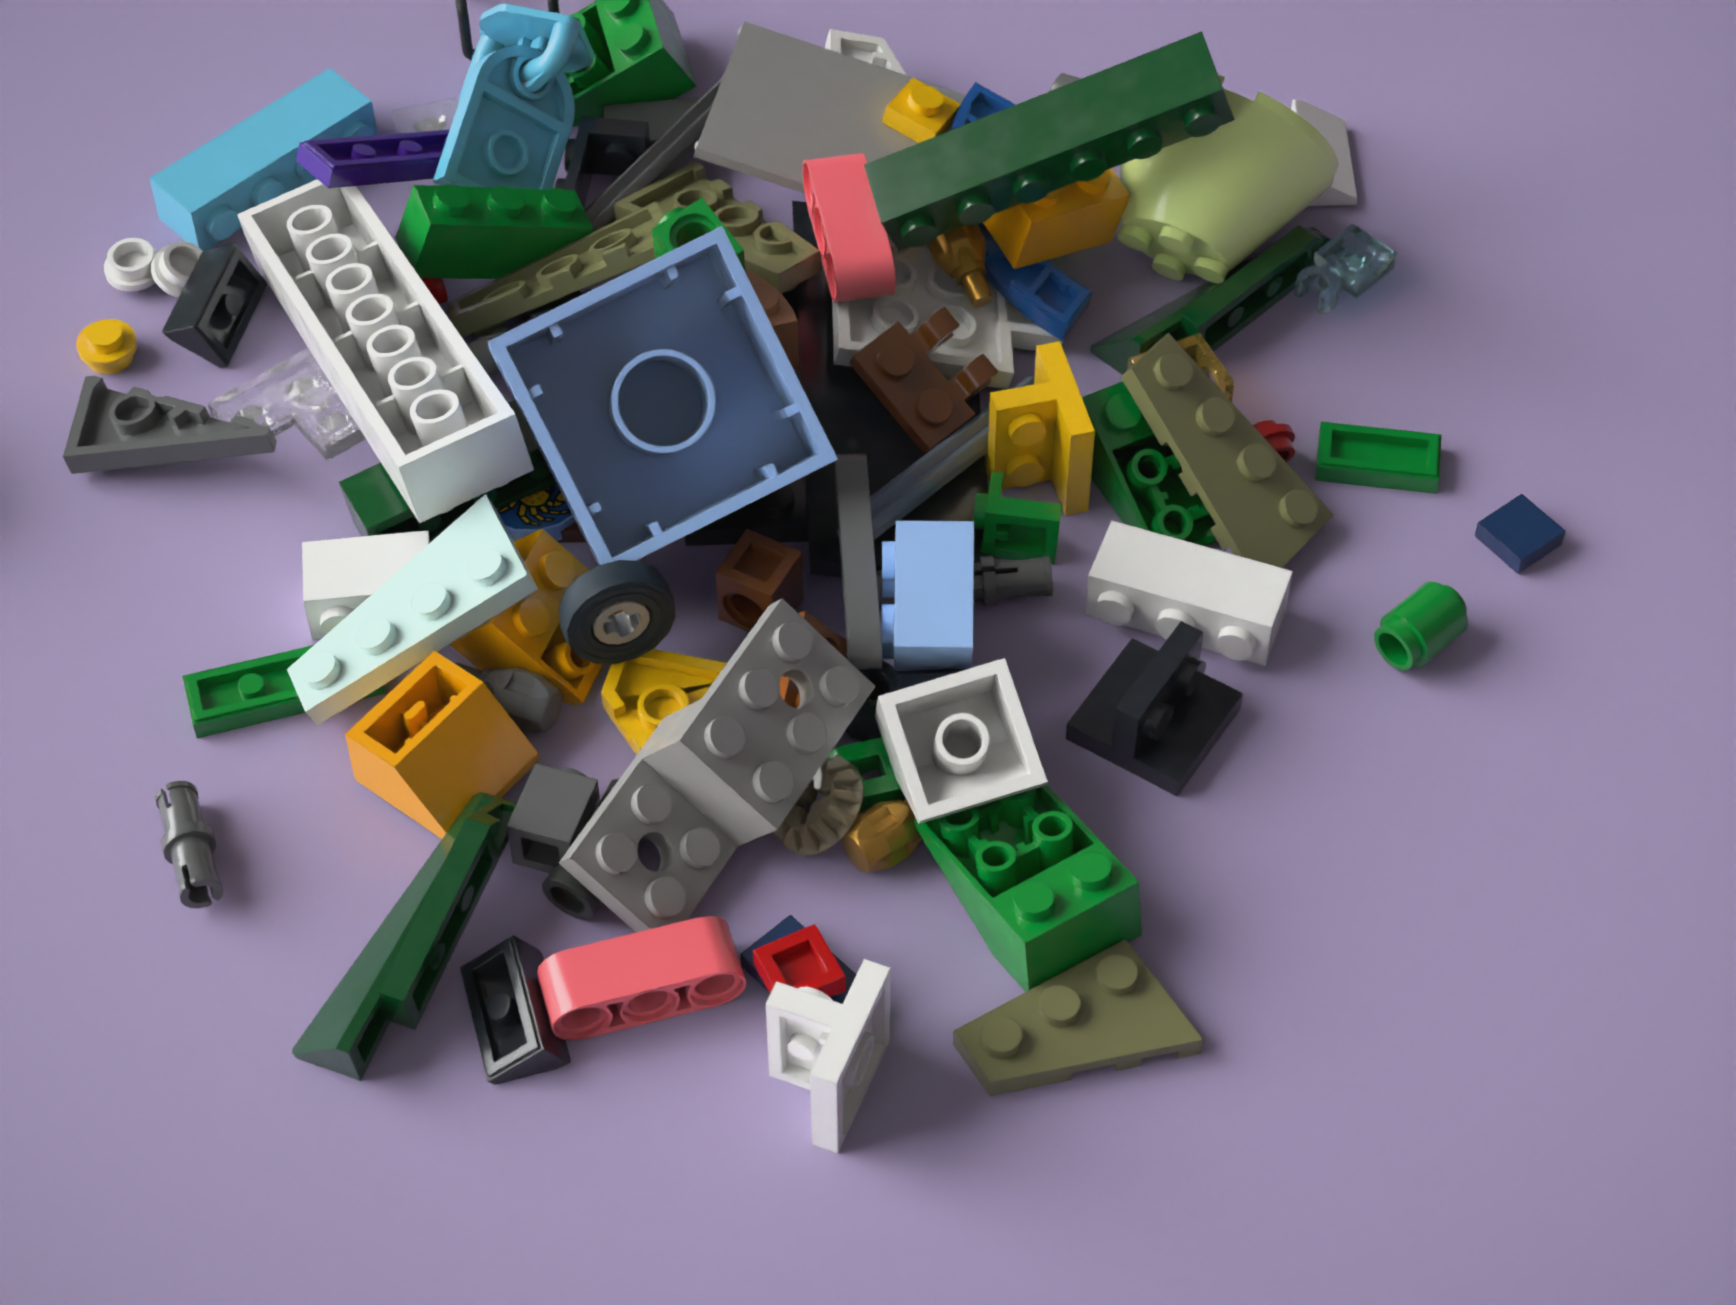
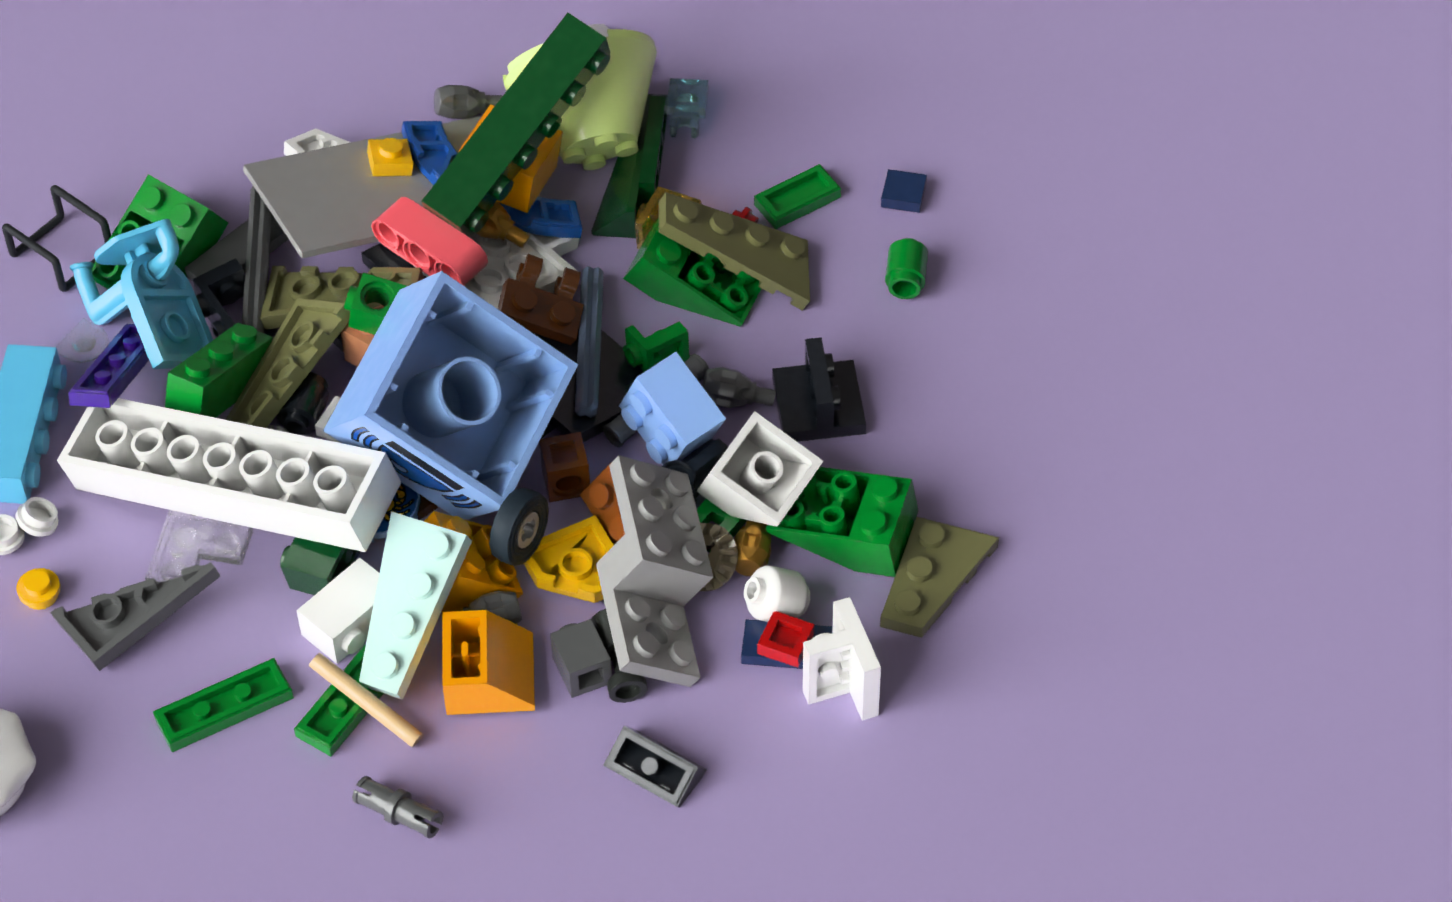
camera: 40 degrees left, 0 degrees up
(148, 598) = (223, 704): none -> green tile
(216, 304) = (81, 522): black slope -> none
(278, 697) = (366, 699): none -> tan bar
(412, 945) = (571, 767): dark green wedge -> none
(641, 978) = (705, 701): coral beam -> none
(848, 909) = (776, 590): none -> white head
(858, 561) = (621, 418): dark grey beam -> none
(1044, 432) = (635, 288): yellow bracket -> none
(1058, 630) = (733, 389): none -> dark grey piece
(1162, 580) = (778, 326): white brick -> none

